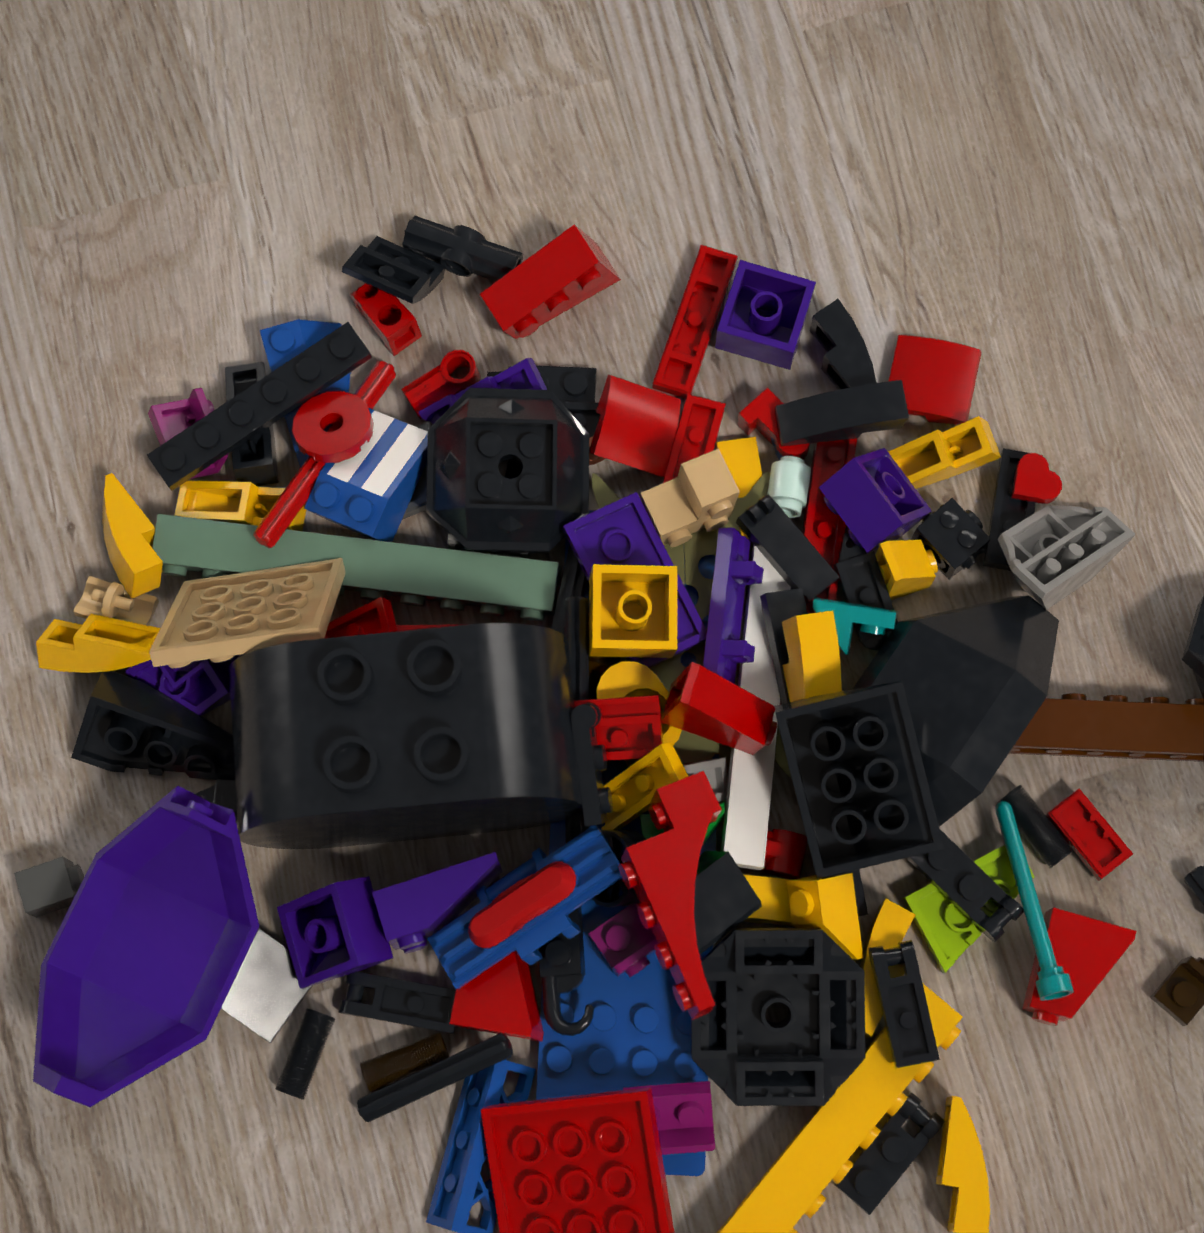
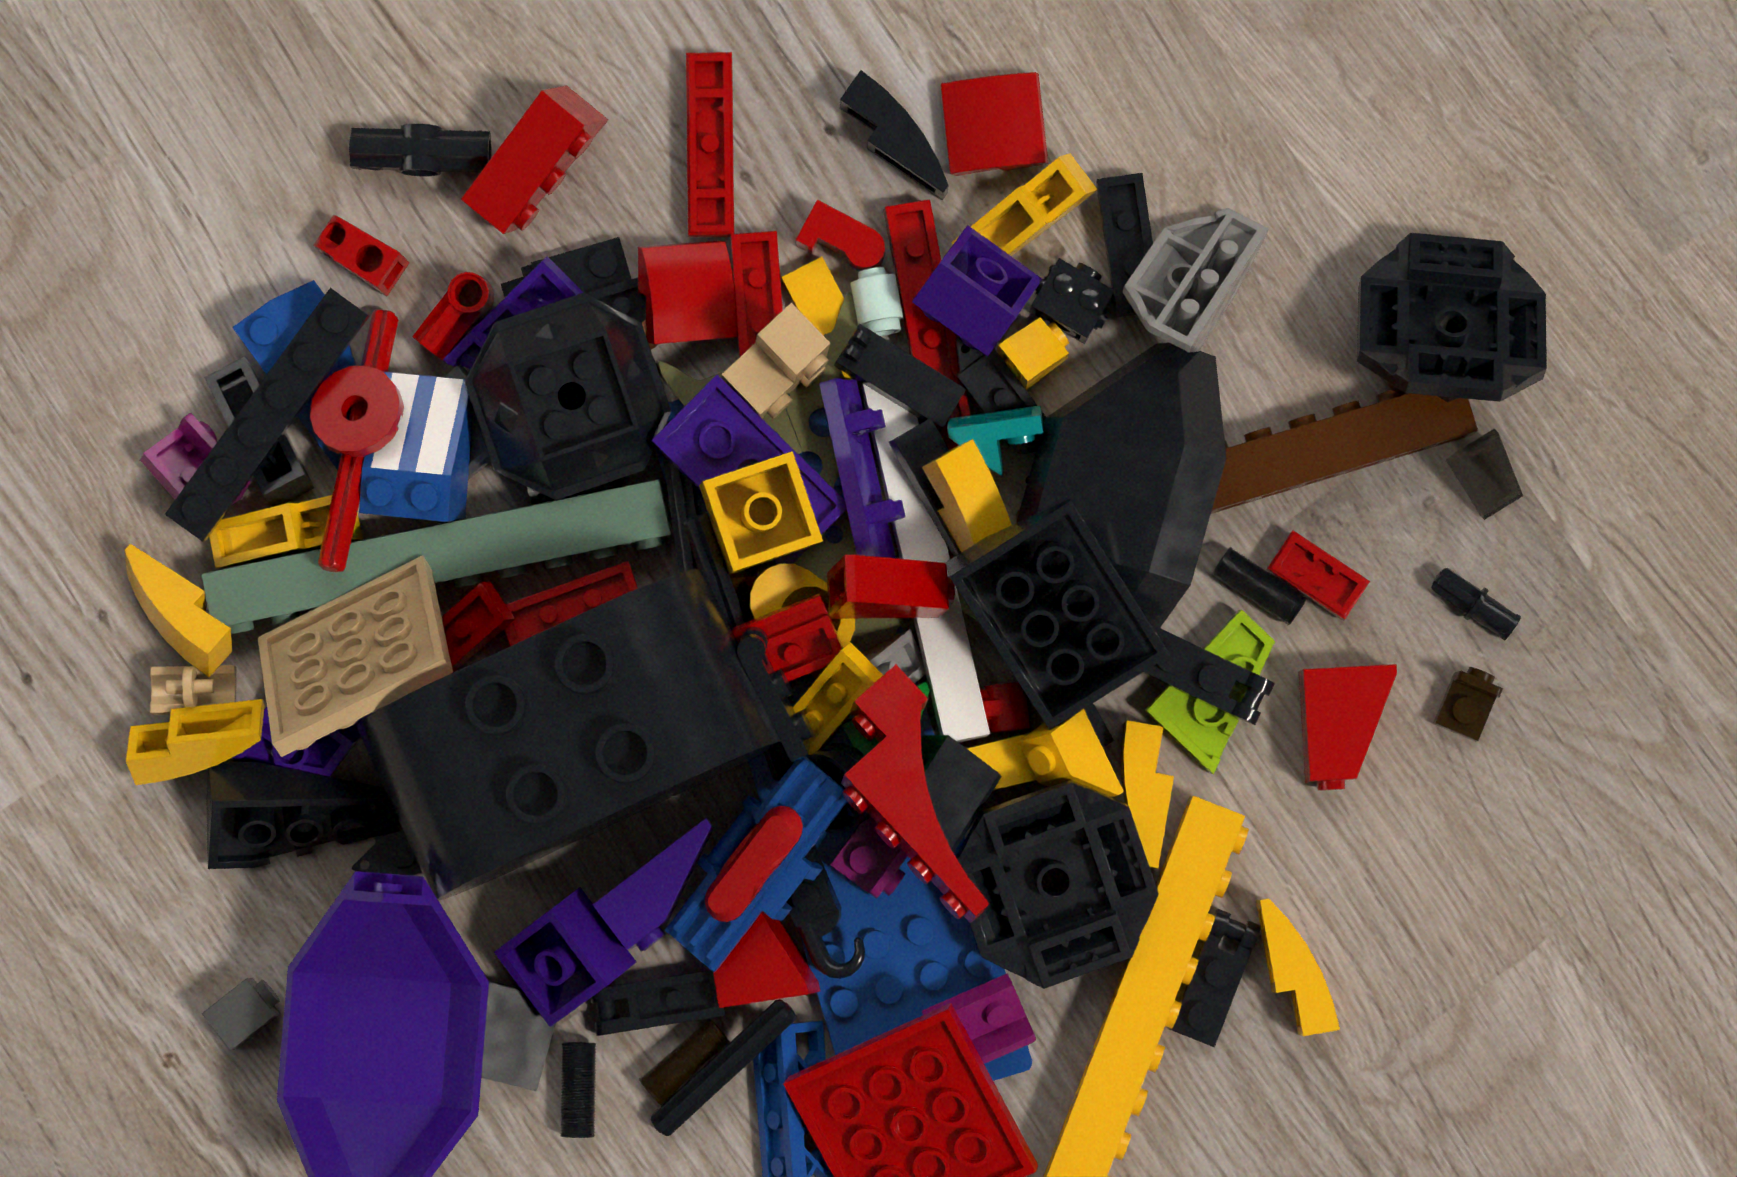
camera: 25 degrees left, 10 degrees up
(394, 270) = (355, 203): black slope -> none
(764, 314) = (786, 114): dark purple slope -> none
(842, 414) = (909, 205): black slope -> none
(904, 1006) = (1181, 827): black plate -> none
(1035, 481) = (1142, 206): red tile -> none
(1052, 980) = (1324, 746): teal piece -> none

